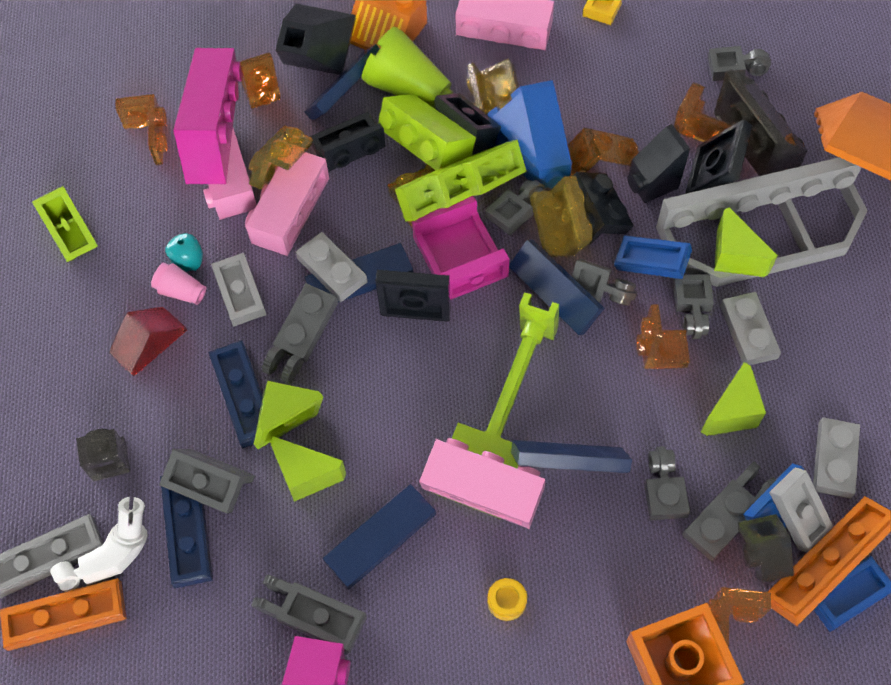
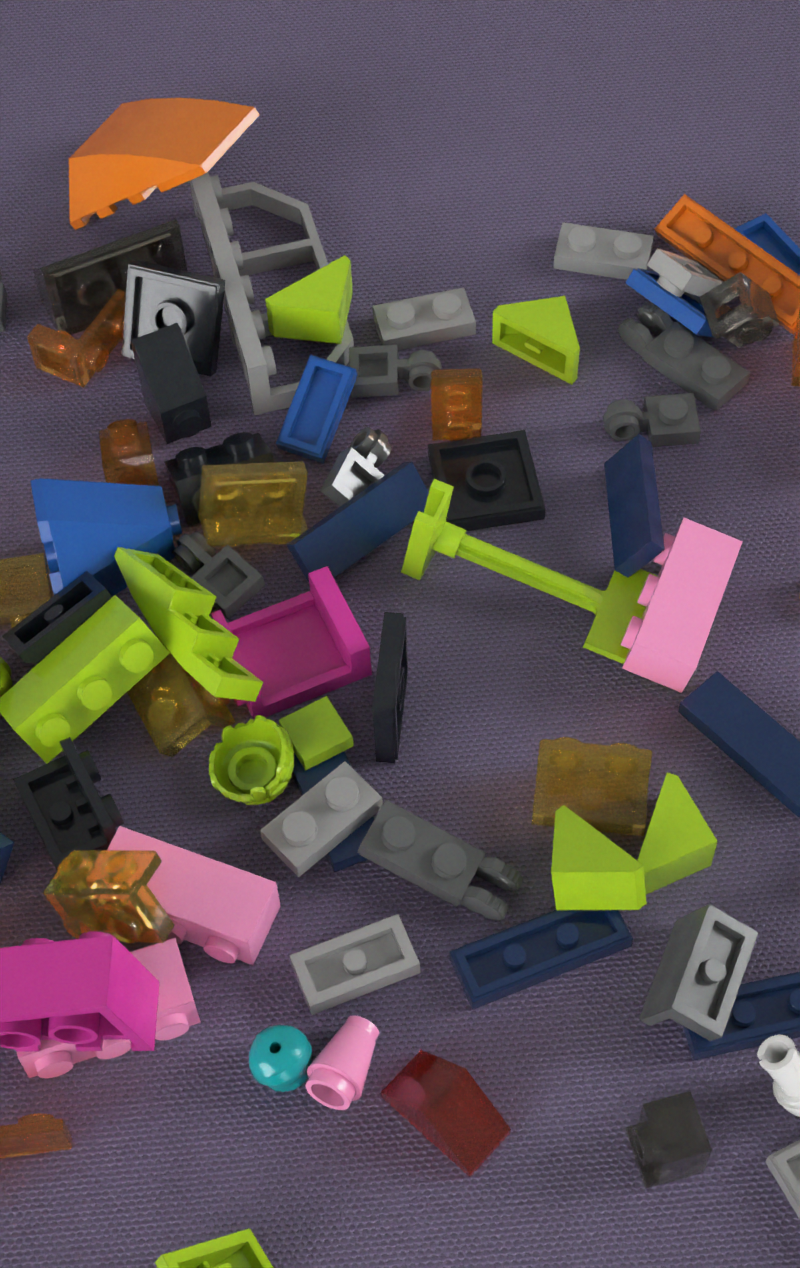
camera: 90 degrees left, 5 degrees down
(343, 420) = (595, 782): none -> clear yellow bracket
(373, 229) = (252, 761): none -> lime hair
(391, 257) = (317, 733): none -> lime tile
(602, 368) = (490, 480): none -> black tile

